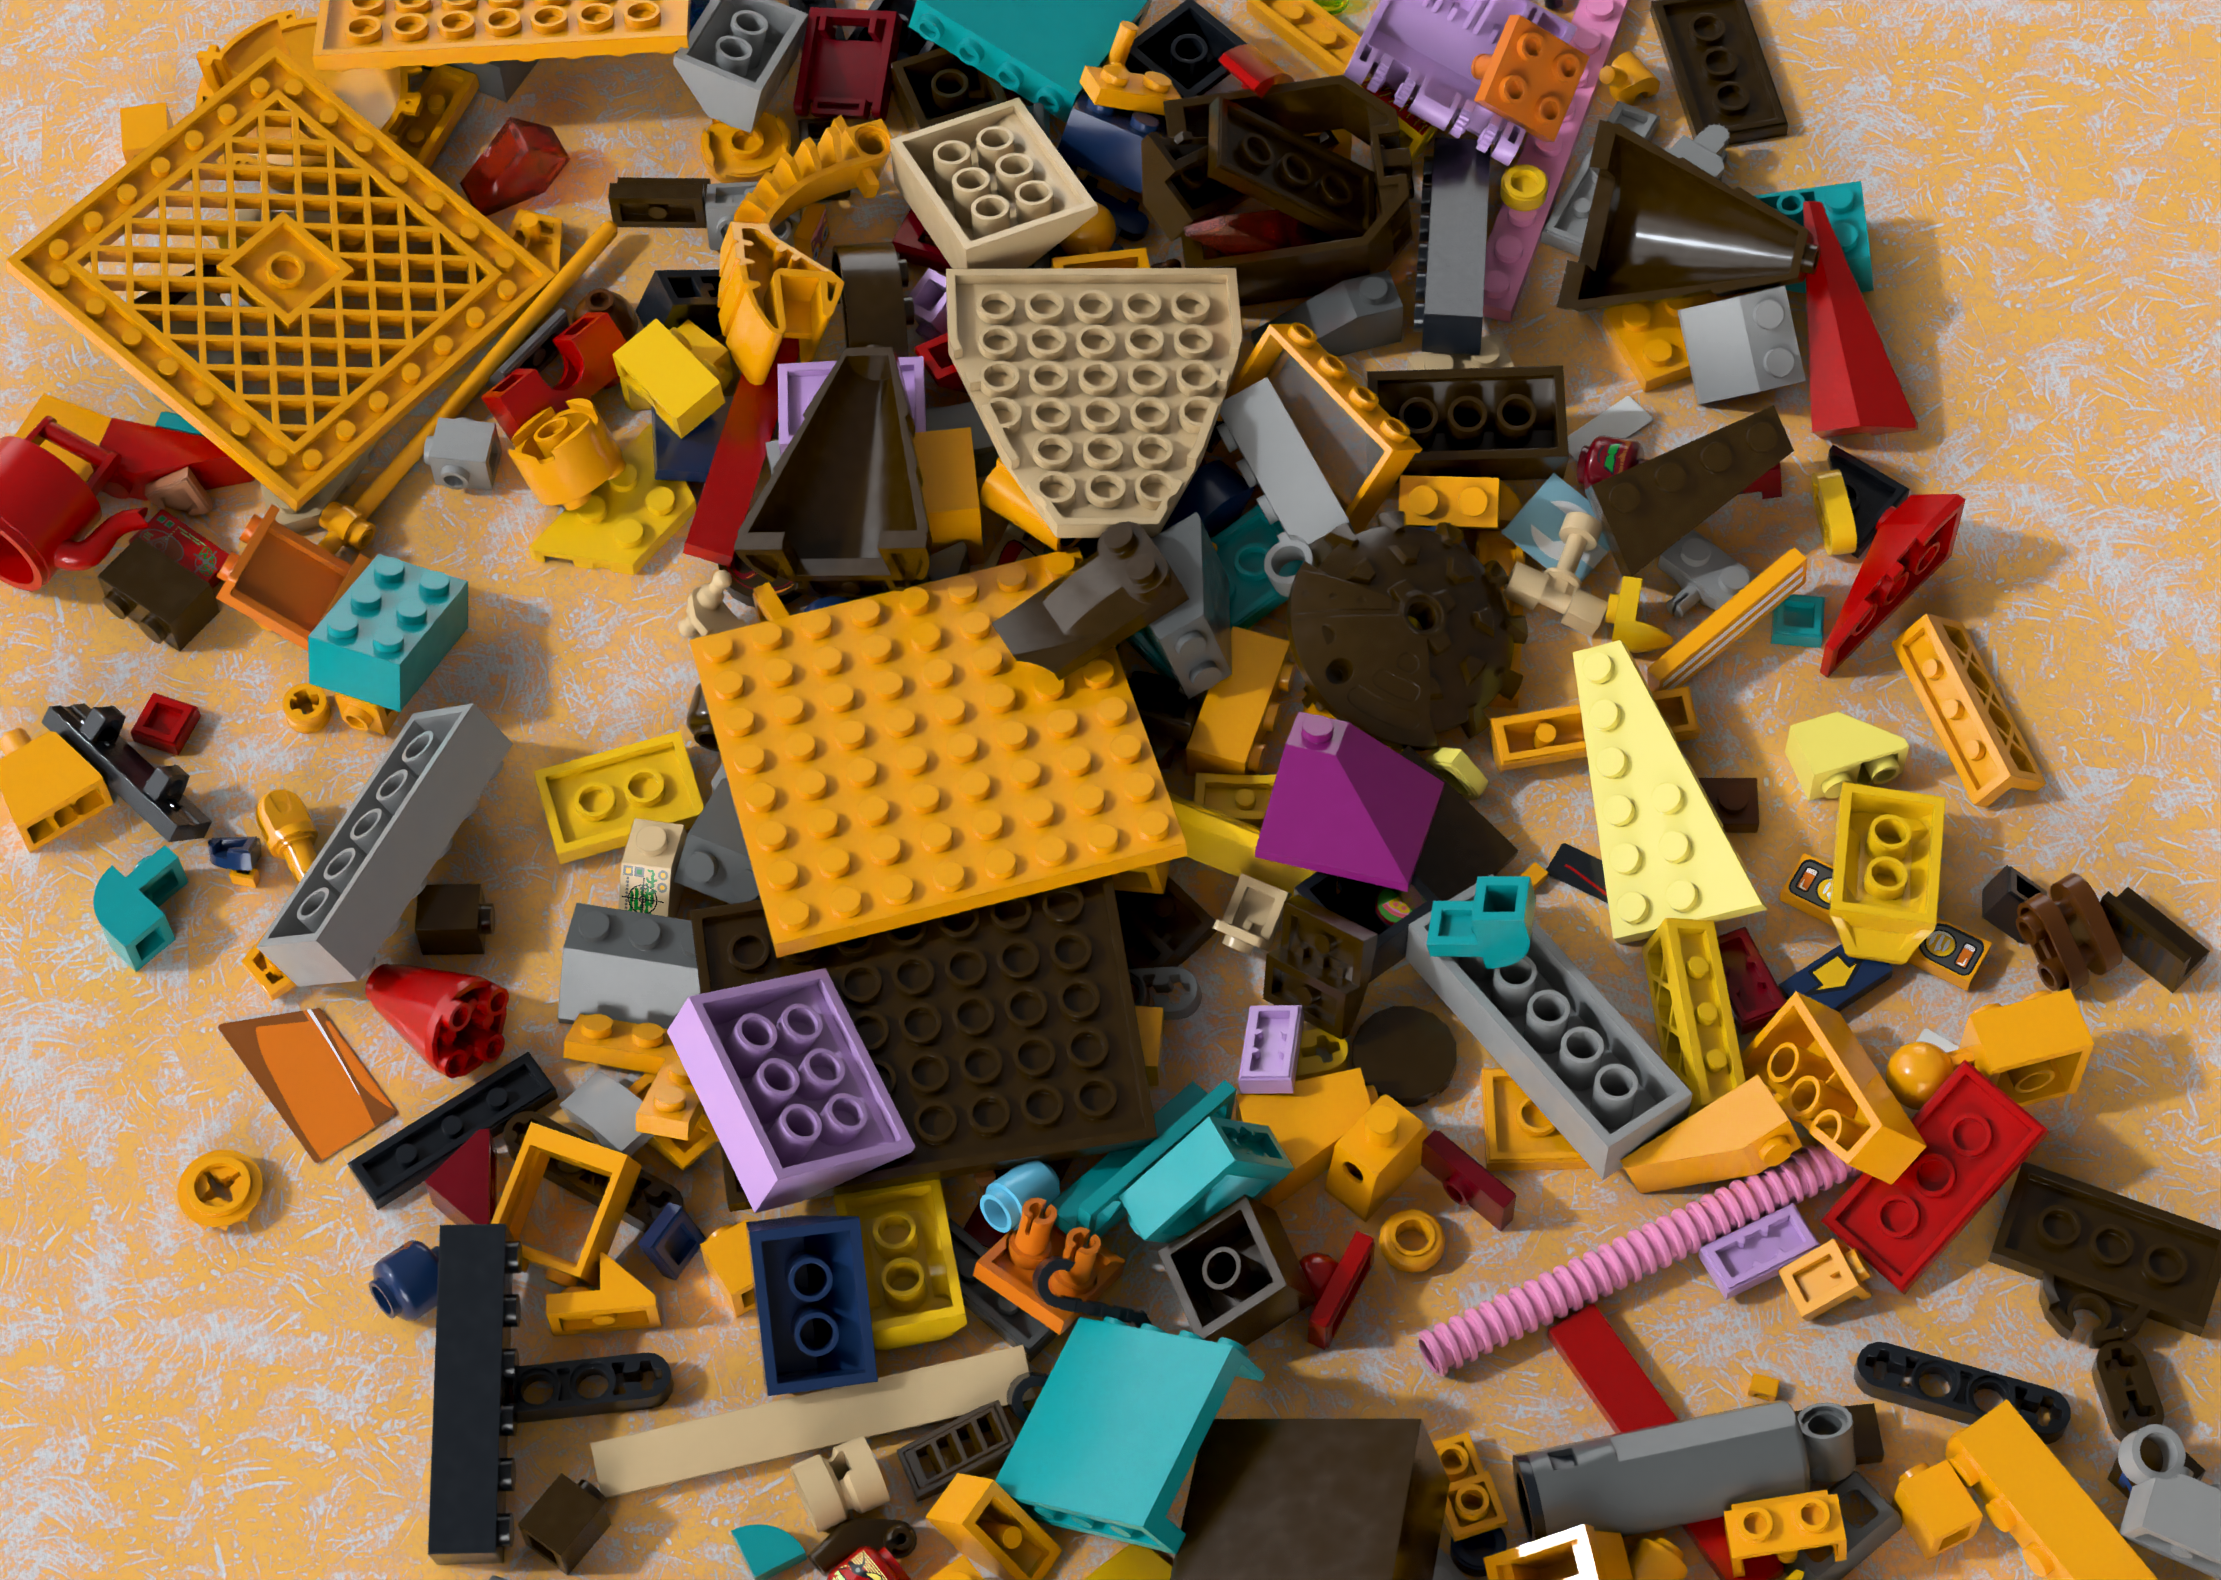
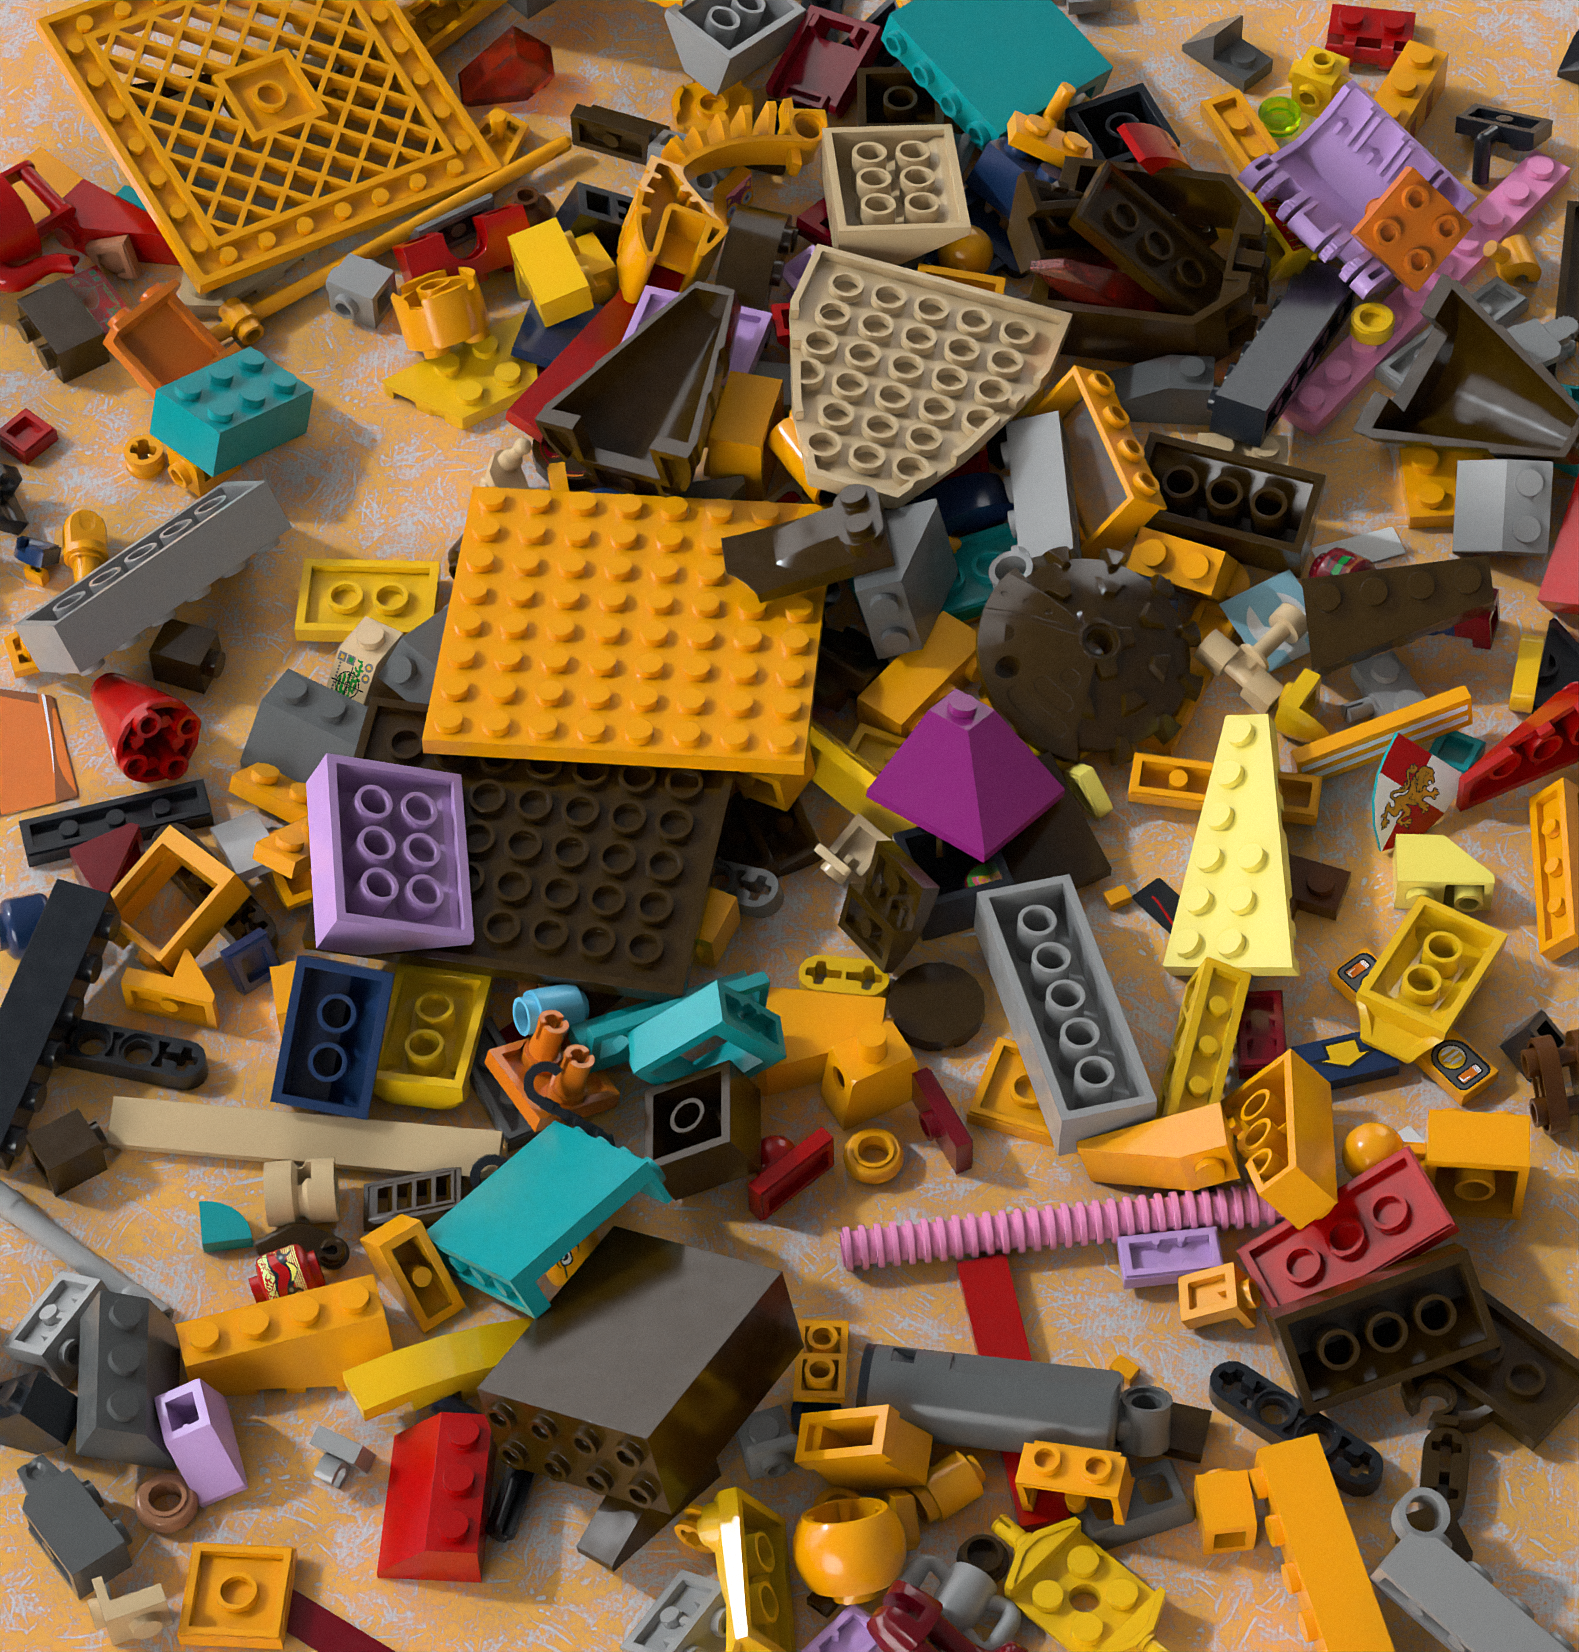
camera: 20 degrees right, 5 degrees down
(1271, 1049) = (817, 960): lavender plate -> none
(1489, 927) = (1038, 905): teal brick -> none
(1780, 674) = (1410, 791): none -> shield
(2013, 1260) = (1382, 1328): none -> dark brown slope

